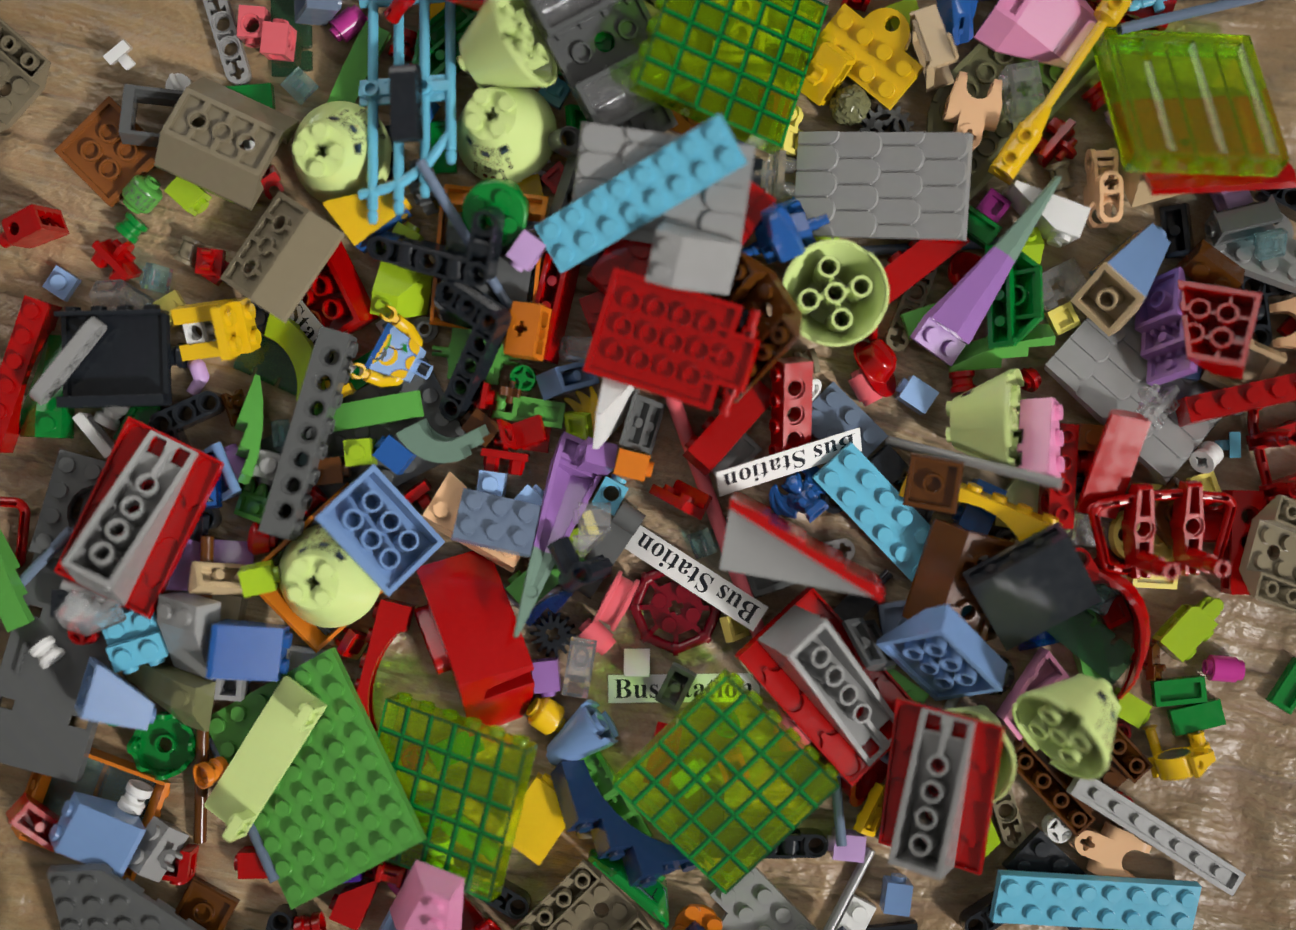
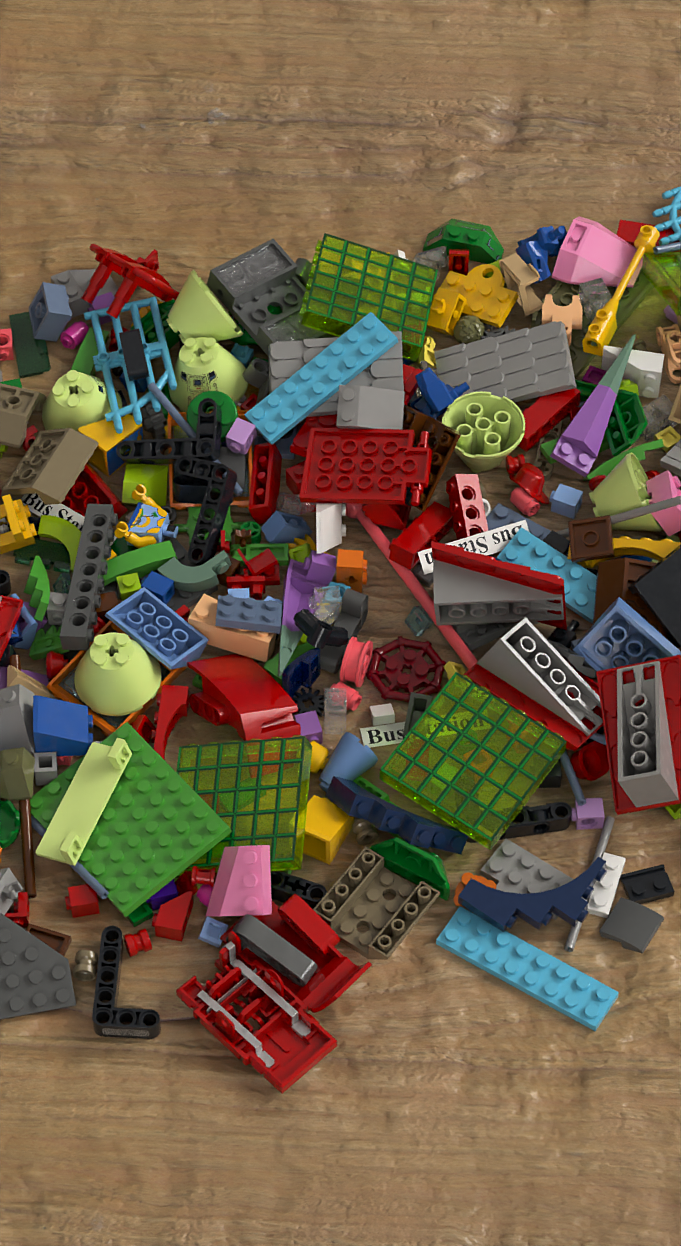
camera: 10 degrees left, 35 degrees down
(208, 773) = (35, 828): orange wheel -> none
(233, 405) = (19, 583): reddish brown piece -> none
(259, 578) = (62, 676): lime brick -> none
(278, 40) = (23, 349): coral brick -> none
(299, 85) = (44, 374): clear light blue tile -> none
(529, 344) = (250, 488): orange brick -> none
(642, 424) = (350, 536): dark grey slope -> none
(683, 497) = (393, 587): red bracket -> none
(696, 578) = (418, 641): white sticker -> none
(870, 816) = (602, 785): yellow plate -> none
(896, 895) = (639, 844): medium blue brick -> none
(1061, 143) = (631, 327): red hips -> none
(1095, 97) = (655, 302): red wheel -> none

